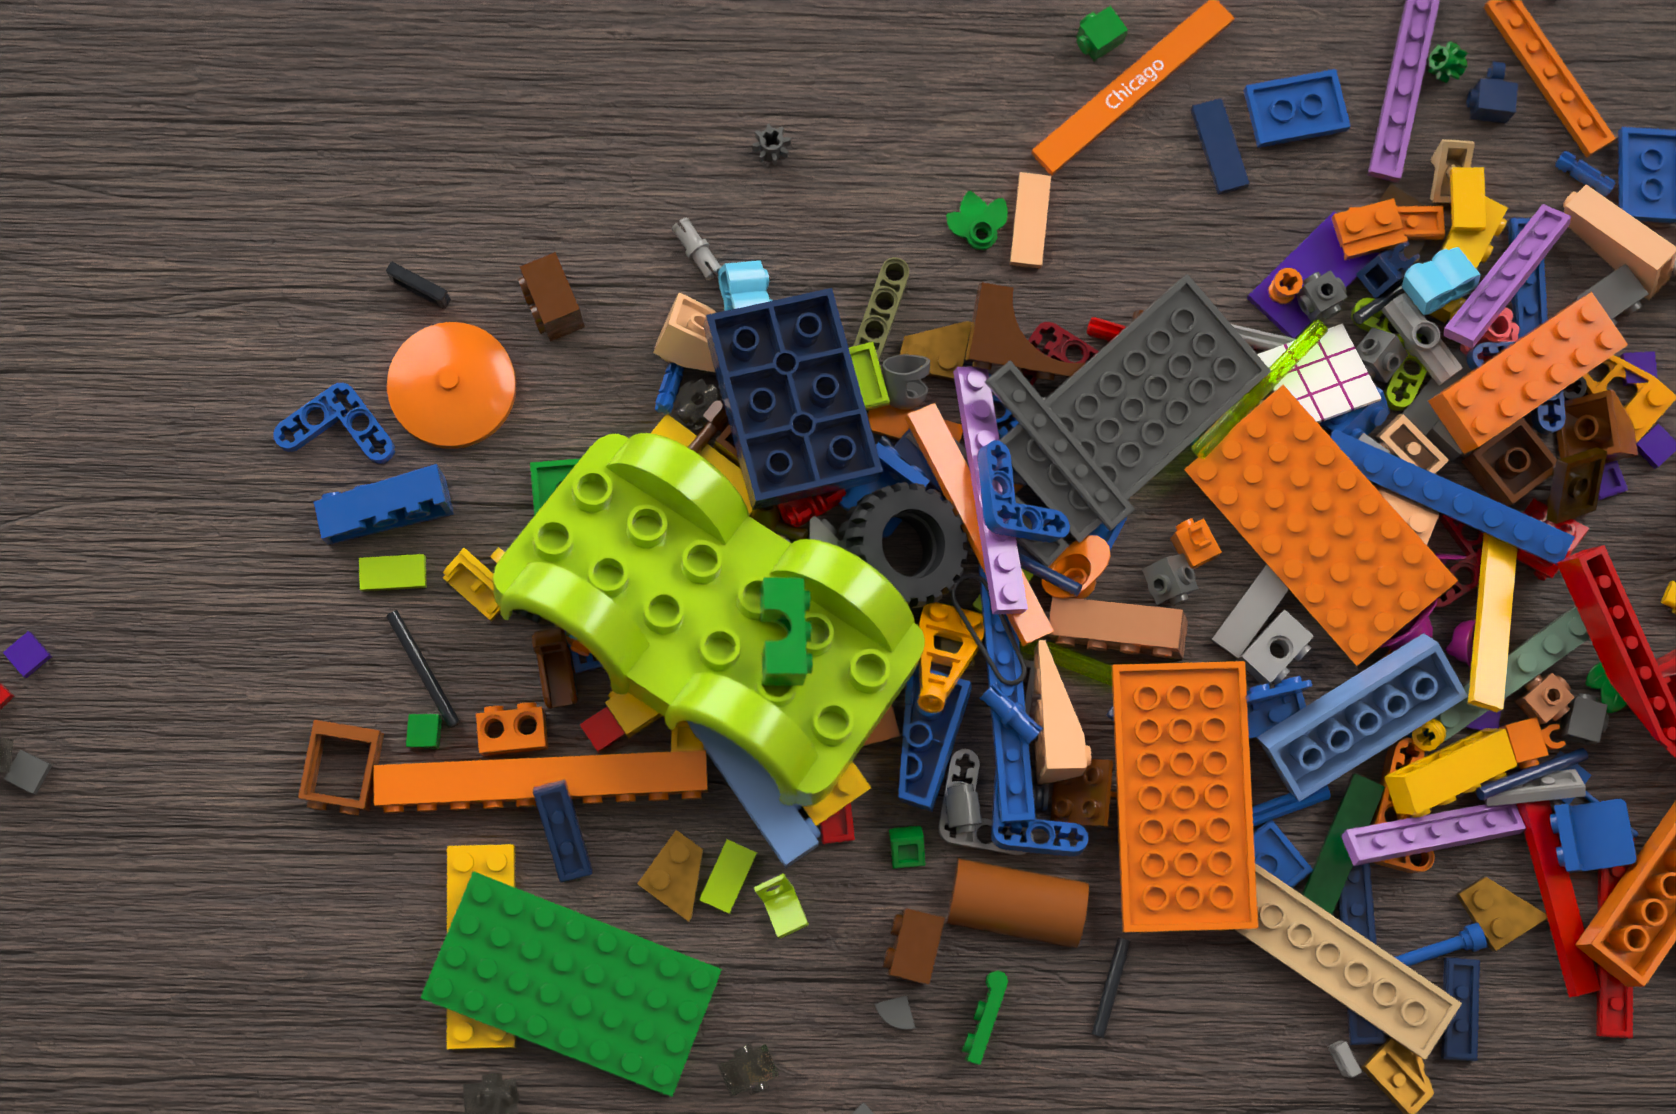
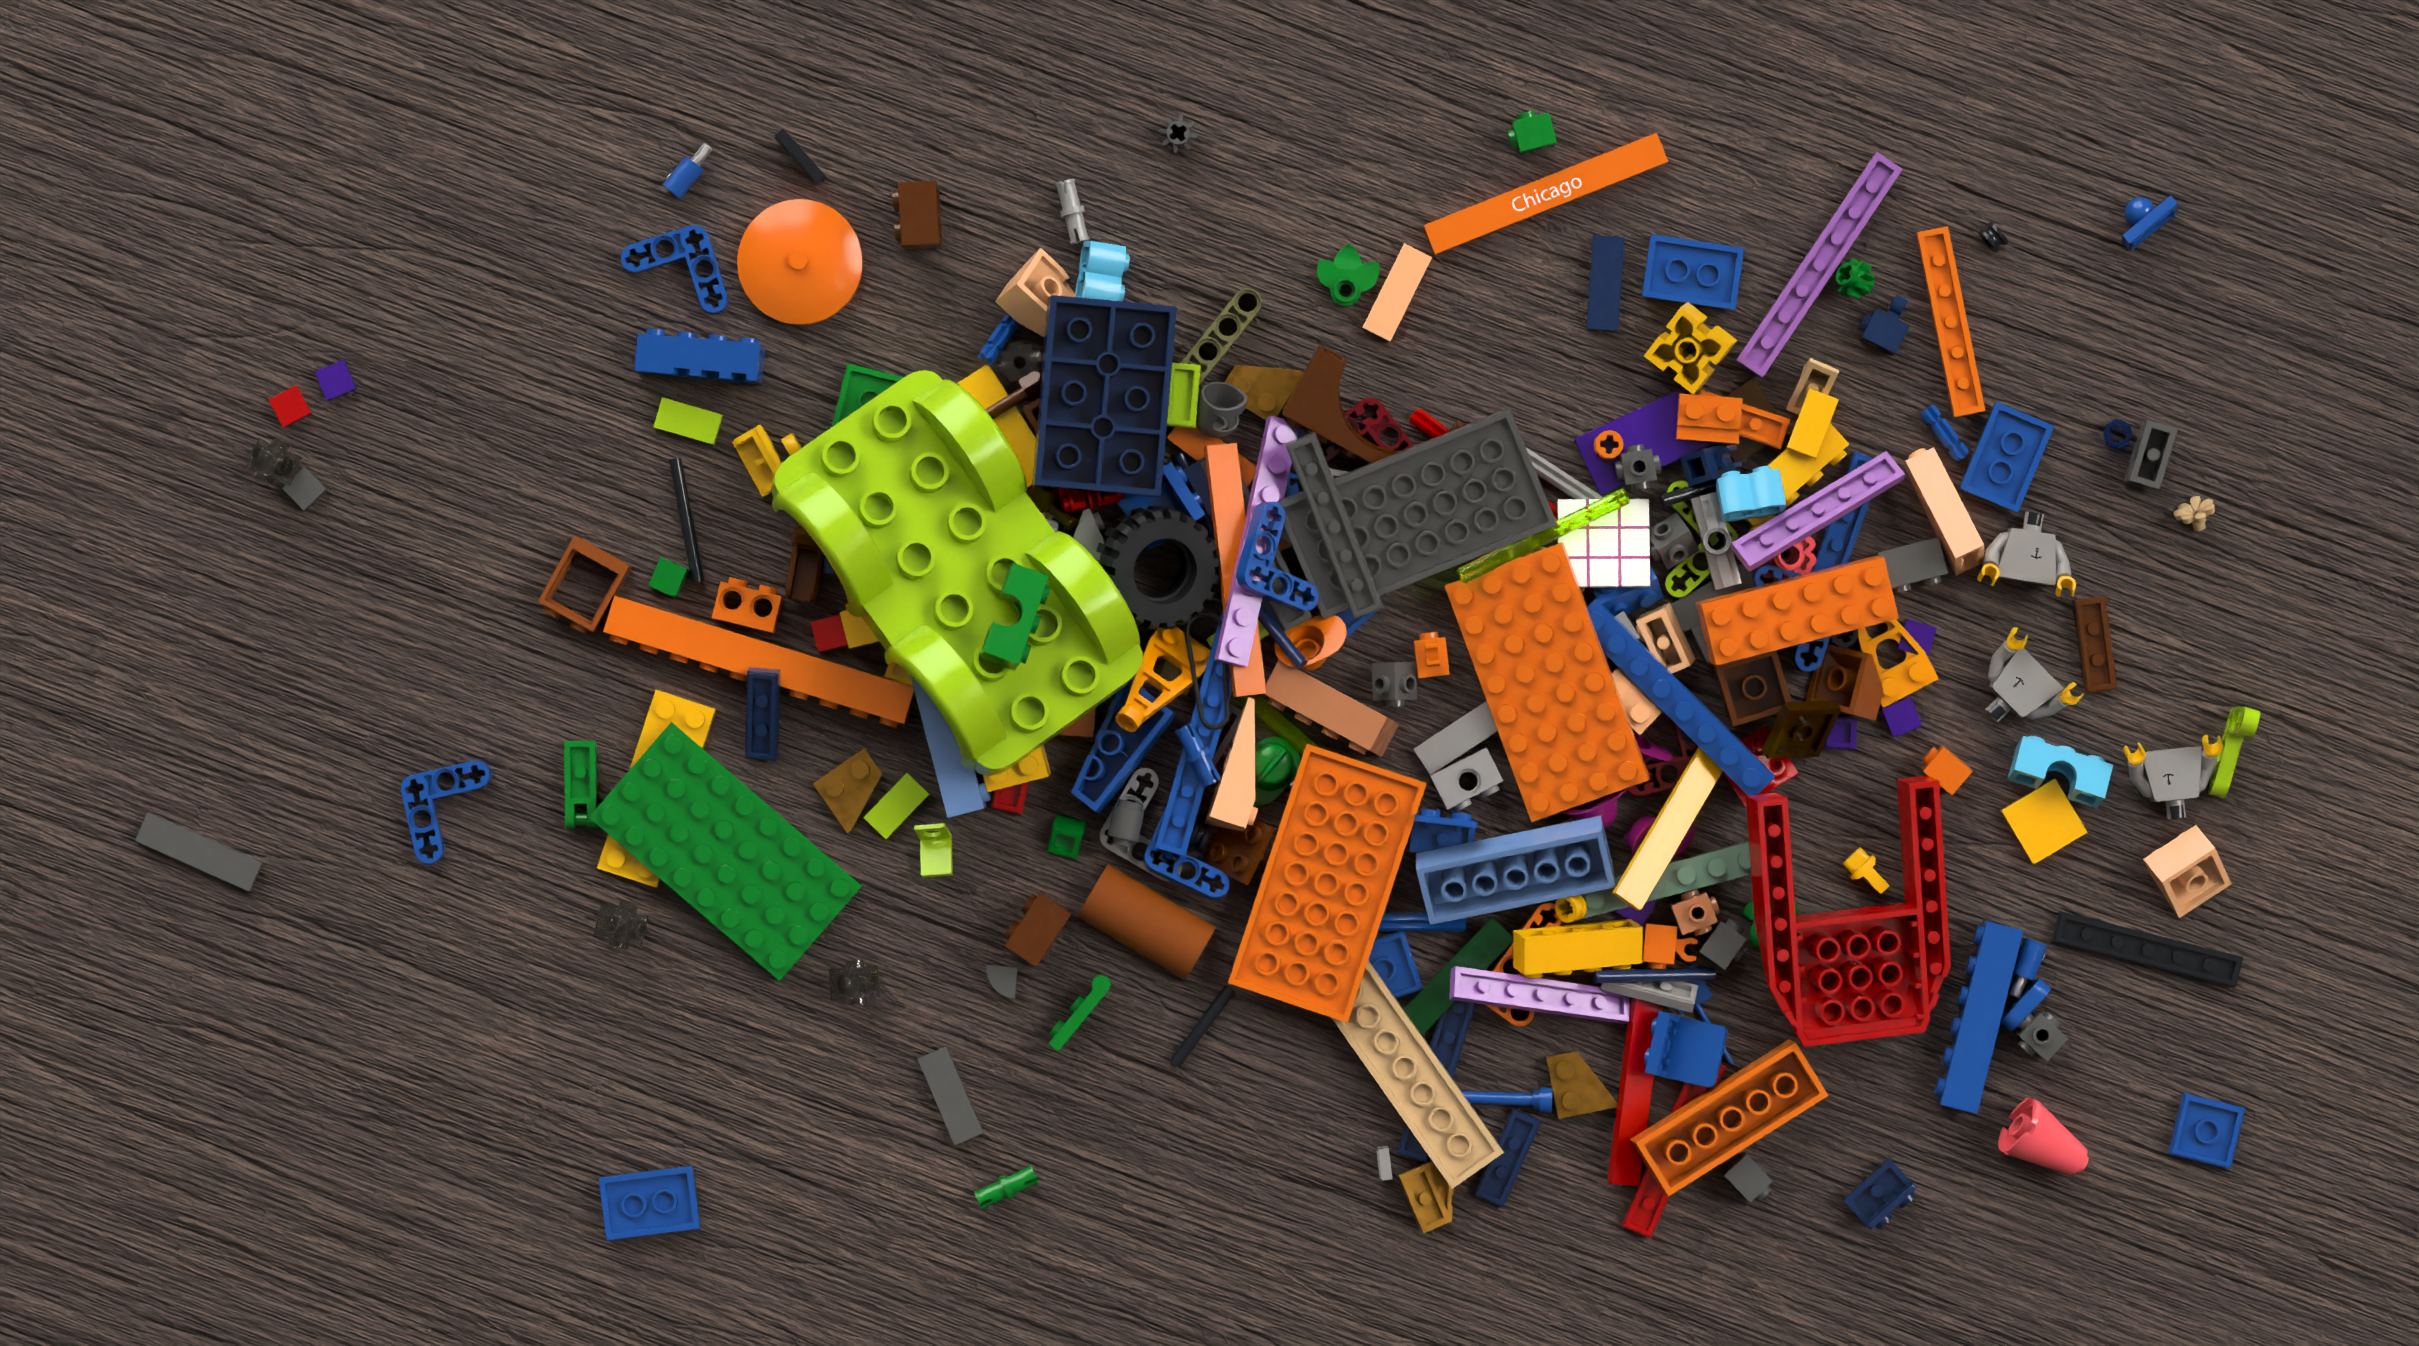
camera: 30 degrees right, 10 degrees up
(253, 1031) = (432, 791): none -> blue beam
(312, 338) = (686, 172): none -> blue piece
(401, 966) = (580, 782): none -> green plate
(1089, 703) = (1274, 768): none -> green piece
(1316, 154) = (1670, 349): none -> yellow brick

